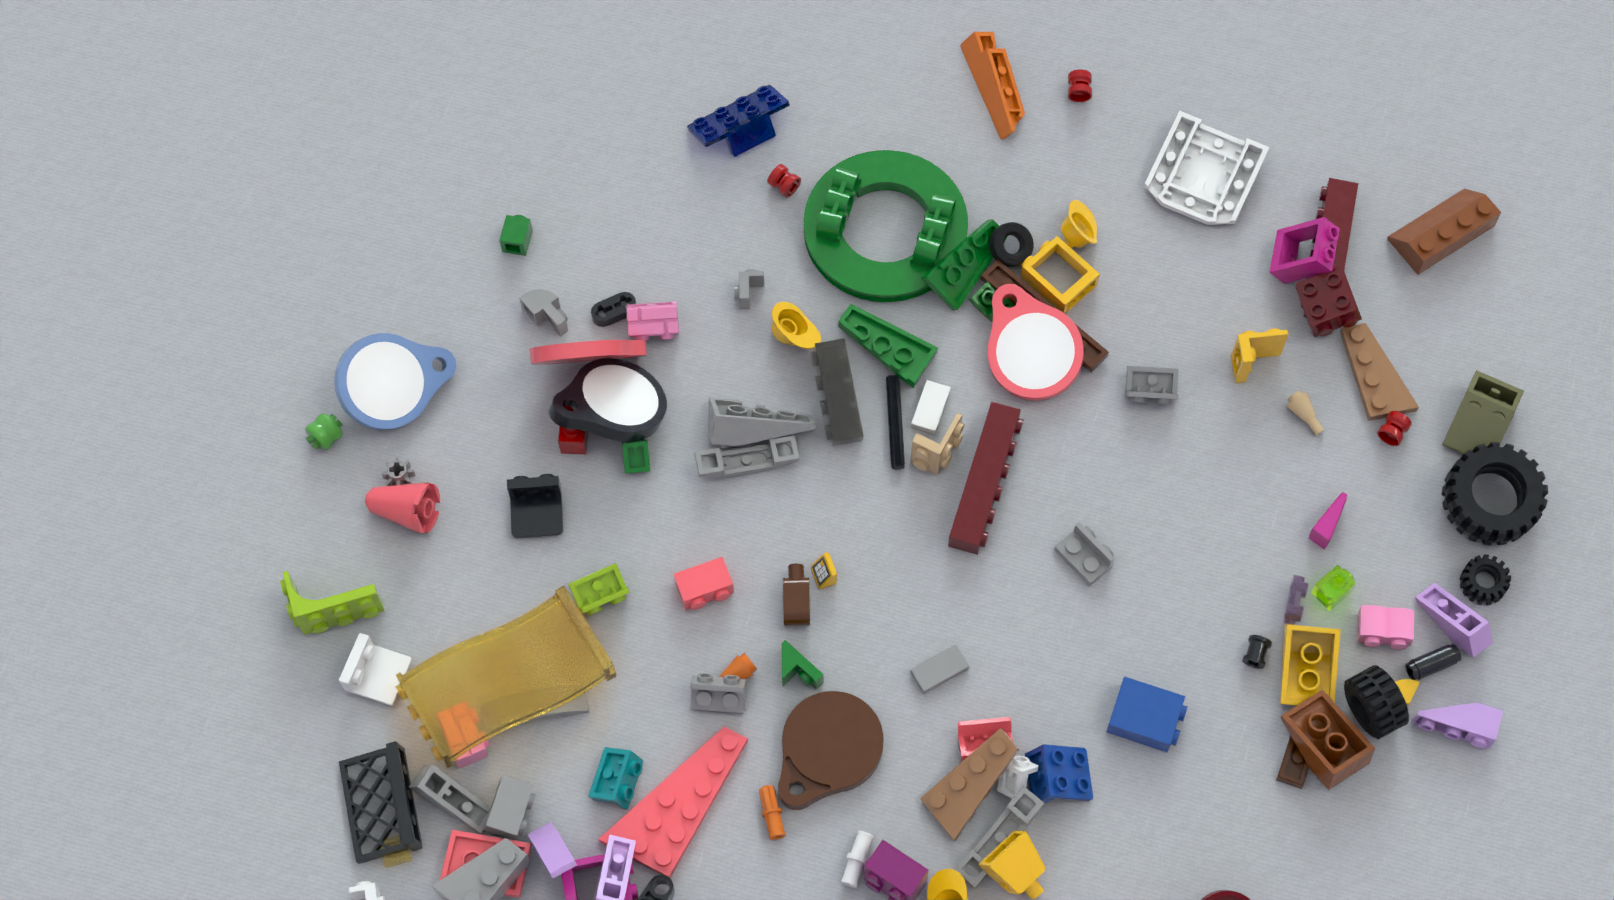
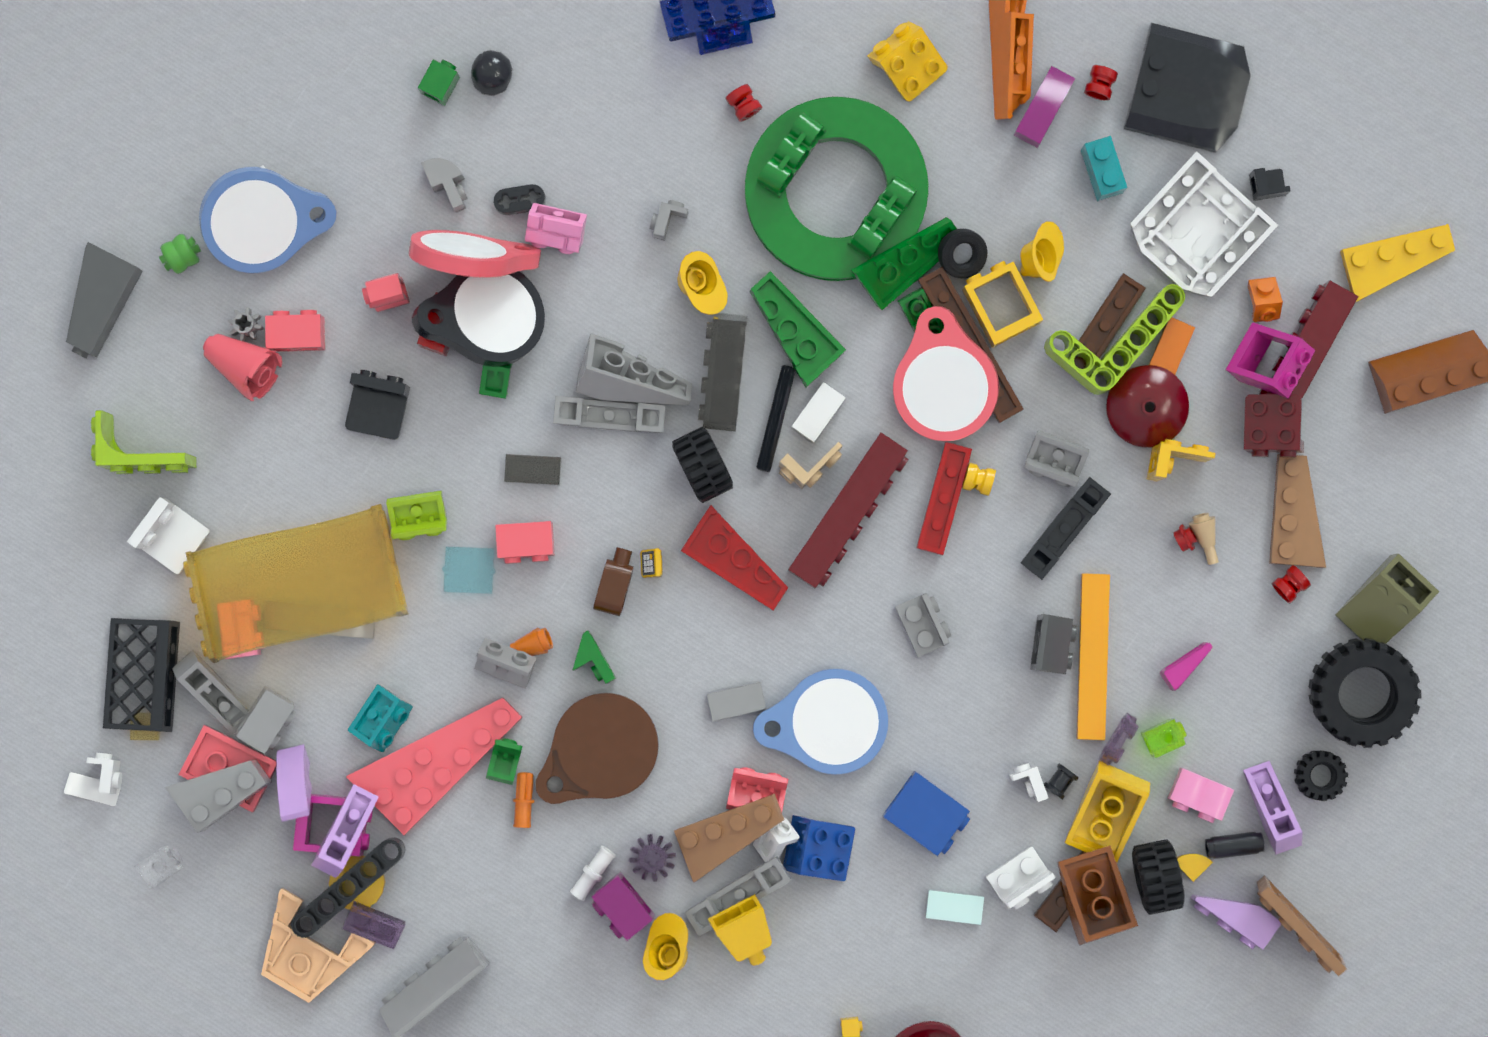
camera: 15 degrees right, 20 degrees up
(261, 486) = (99, 299): none -> dark grey slope
(446, 466) = (295, 332): none -> coral brick
(518, 409) = (385, 292): none -> coral brick
(559, 217) = (491, 72): none -> black hair
(659, 626) = (469, 570): none -> clear light blue piece
(692, 524) = (532, 469): none -> clear smoke tile
(743, 780) = (504, 761): none -> green bracket
(844, 469) = (702, 464): none -> black tyre
(887, 545) = (730, 557): none -> red wing
(903, 836) = (660, 863): none -> clear purple gear
(913, 111) = (908, 60): none -> yellow bracket
(1029, 662) = (828, 722): none -> piece
(1039, 117) = (1044, 106): none -> magenta slope
(1065, 445) = (944, 498): none -> red plate
(1090, 419) = (979, 479): none -> yellow wheel
(1106, 147) = (1103, 168): none -> teal brick
(1152, 271) = (1110, 317): none -> reddish brown tile
(1154, 73) = (1188, 88): none -> black wedge
(1167, 297) = (1123, 345): none -> lime beam
(1181, 437) = (1065, 528): none -> black slope
(1201, 792) = (954, 907): none -> light aqua tile
(1205, 535) = (1052, 644): none -> dark grey slope
(1206, 335) = (1127, 406): none -> dark red dish
(1216, 271) = (1172, 345): none -> orange tile
(1233, 657) = (1034, 785): none -> white bracket
(1245, 540) = (1093, 656): none -> light orange tile
(1247, 125) = (1267, 184): none -> black panel
(1251, 746) = (1020, 878): none -> white bracket
(1281, 210) = (1265, 299): none -> orange bracket
(1288, 417) = (1185, 538): none -> red plate
(1376, 152) = (1385, 261): none -> yellow wing
(1529, 713) = (1292, 919): none -> medium nougat plate

